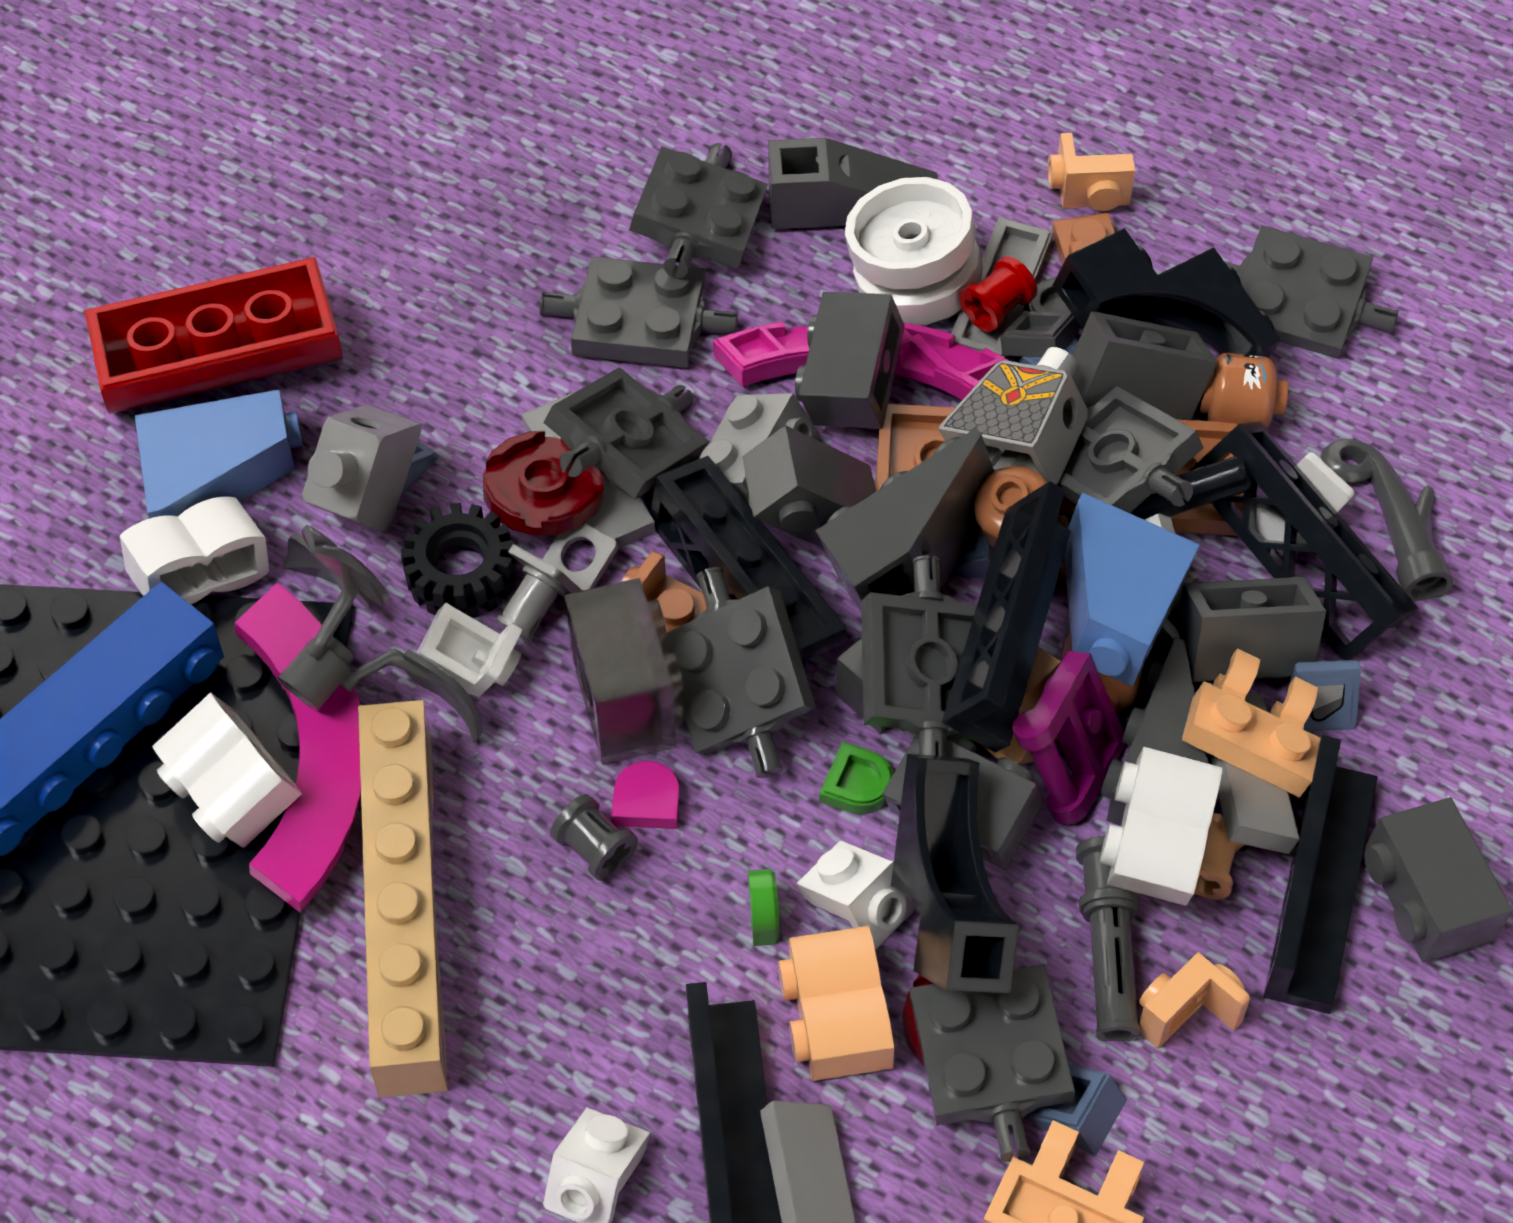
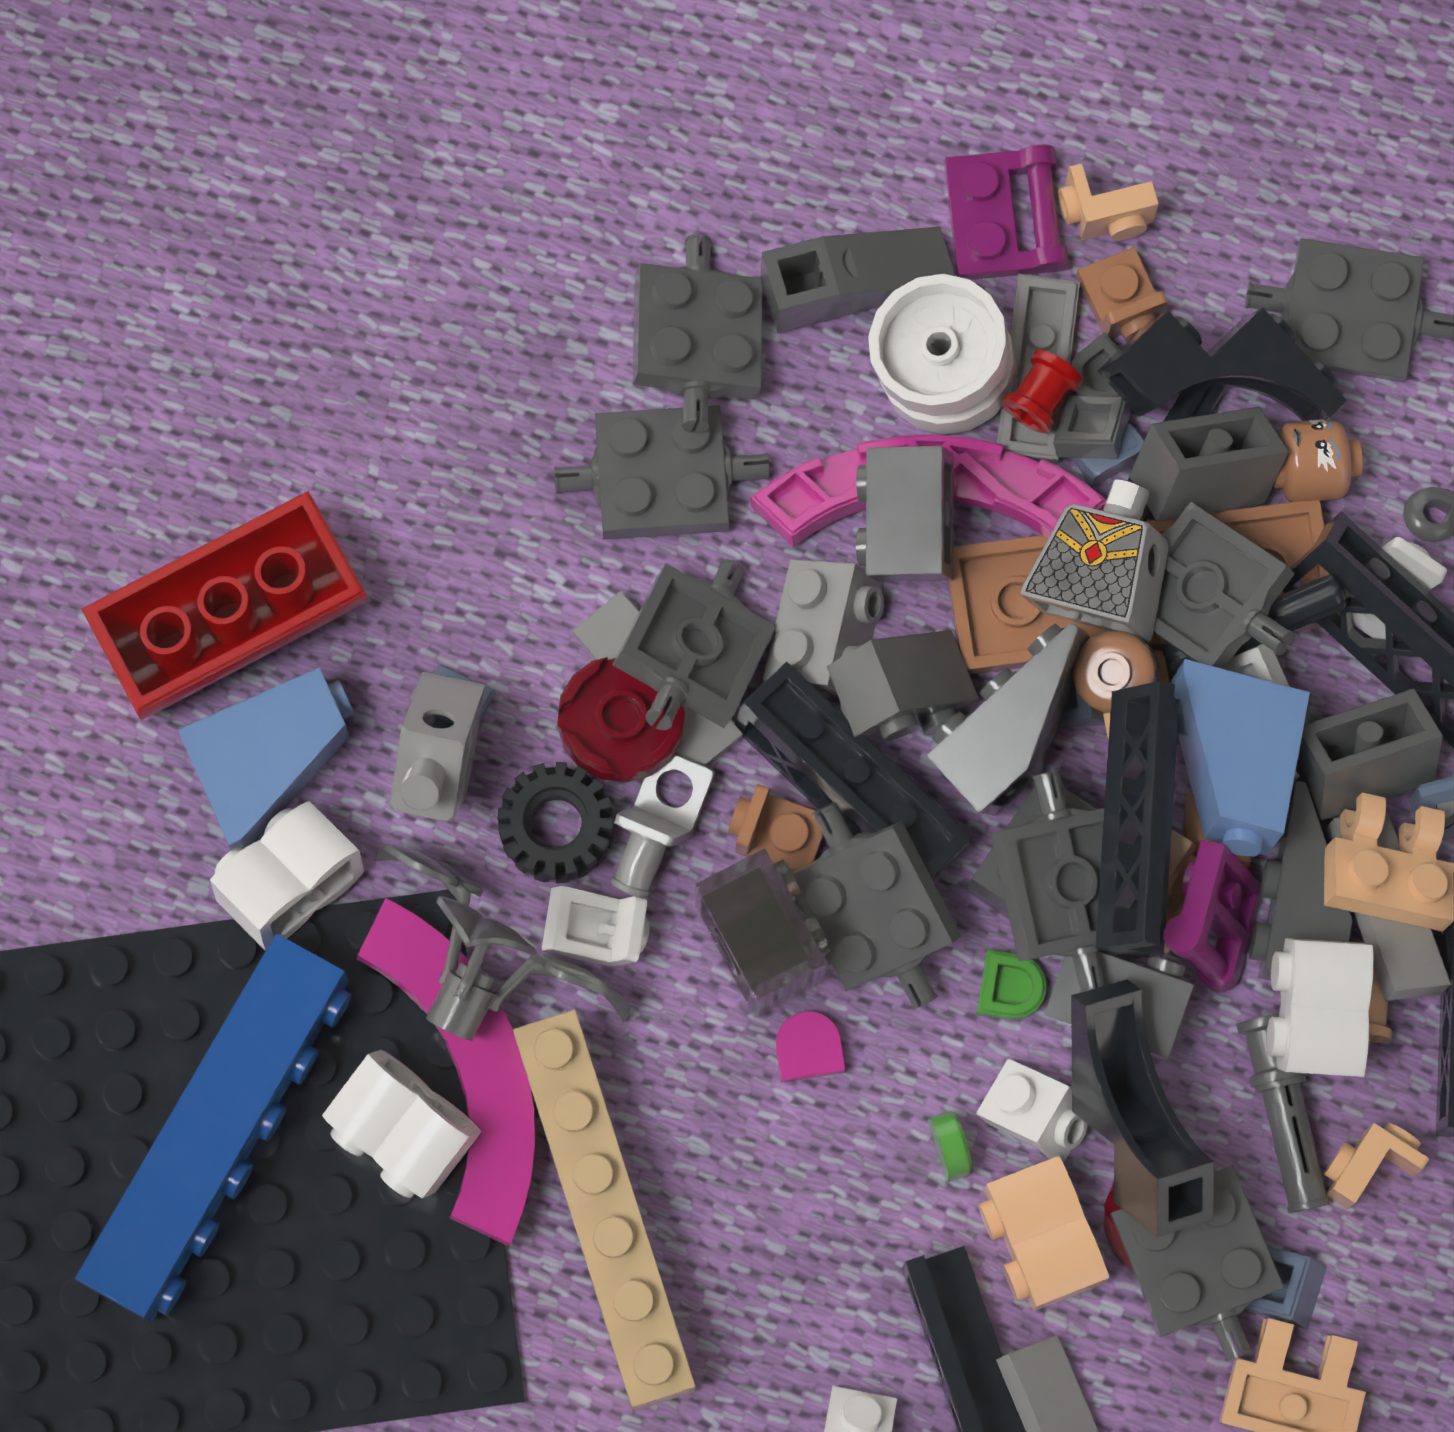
camera: 15 degrees left, 20 degrees up
(593, 837) = (770, 1107): dark grey bush -> none
(979, 170) = (985, 218): none -> magenta plate

